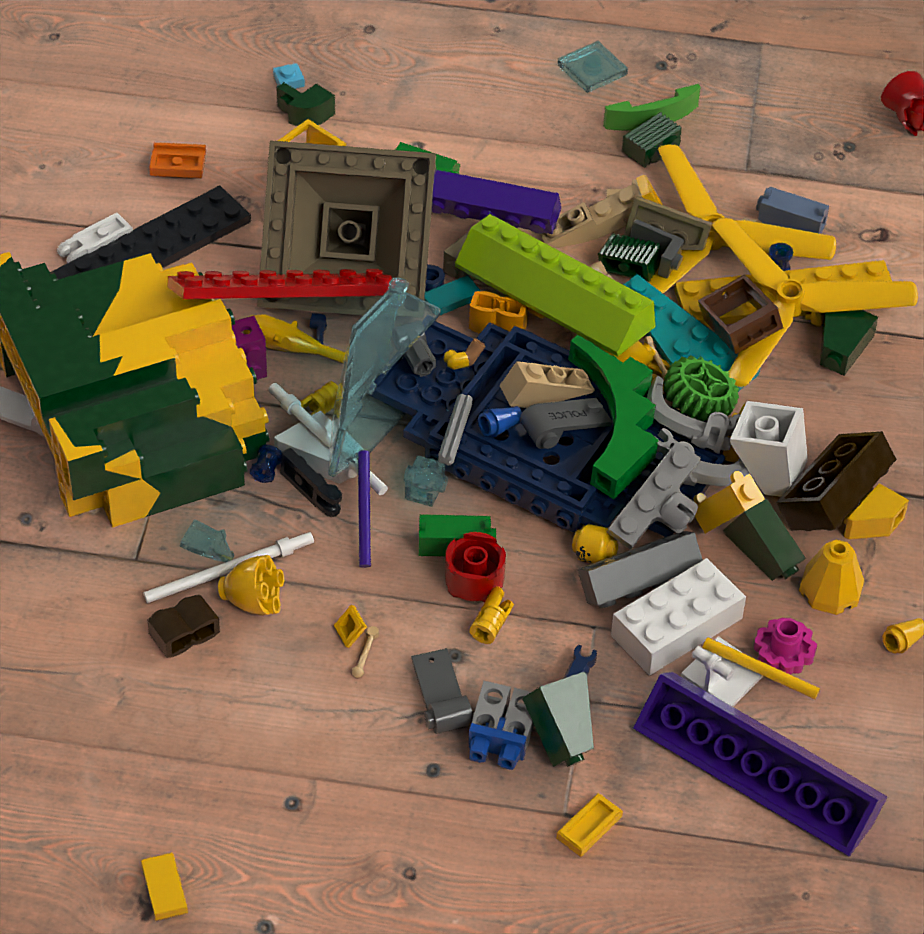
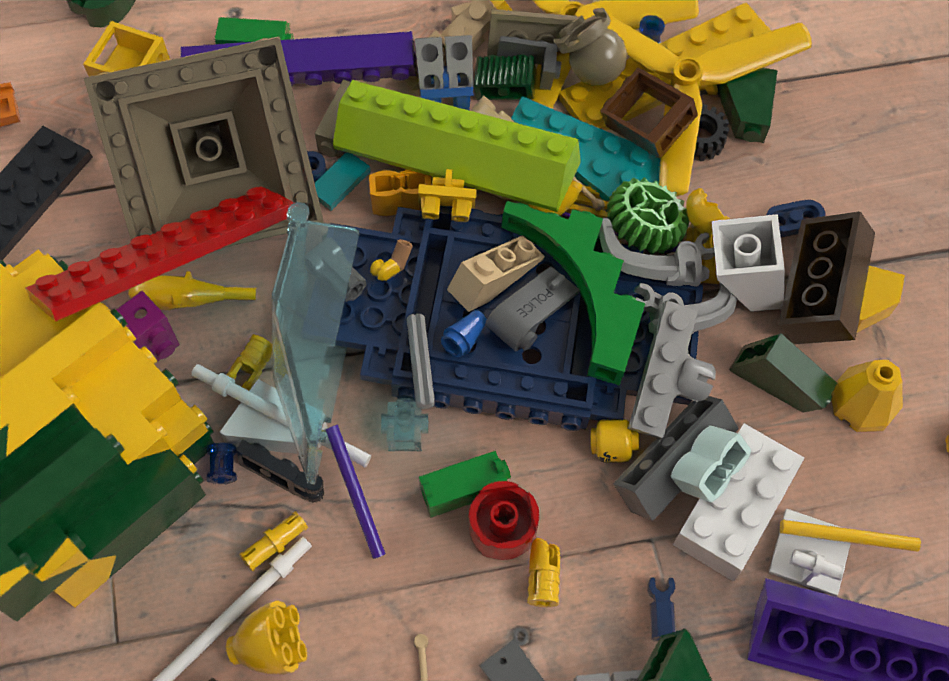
camera: 20 degrees left, 15 degrees up
(207, 542) = (192, 590): clear light blue slope -> none
(285, 527) = (273, 541): none -> yellow pin
(318, 322) = (214, 261): dark blue hand -> none
(350, 626) = (395, 647): yellow slope -> none
(530, 318) = (446, 193): none -> yellow hips
(581, 243) = (451, 80): none -> light grey hips
(657, 573) = (711, 463): none -> light aqua brick
(713, 253) = (594, 50): none -> dark tan tile
(728, 502) = (741, 349): yellow brick -> none
(746, 390) = (702, 212): none -> yellow hair
(785, 645) = (858, 495): dark pink plant -> none
(791, 360) = (719, 130): none -> black tyre
(824, 432) = (792, 213): none -> dark blue plate

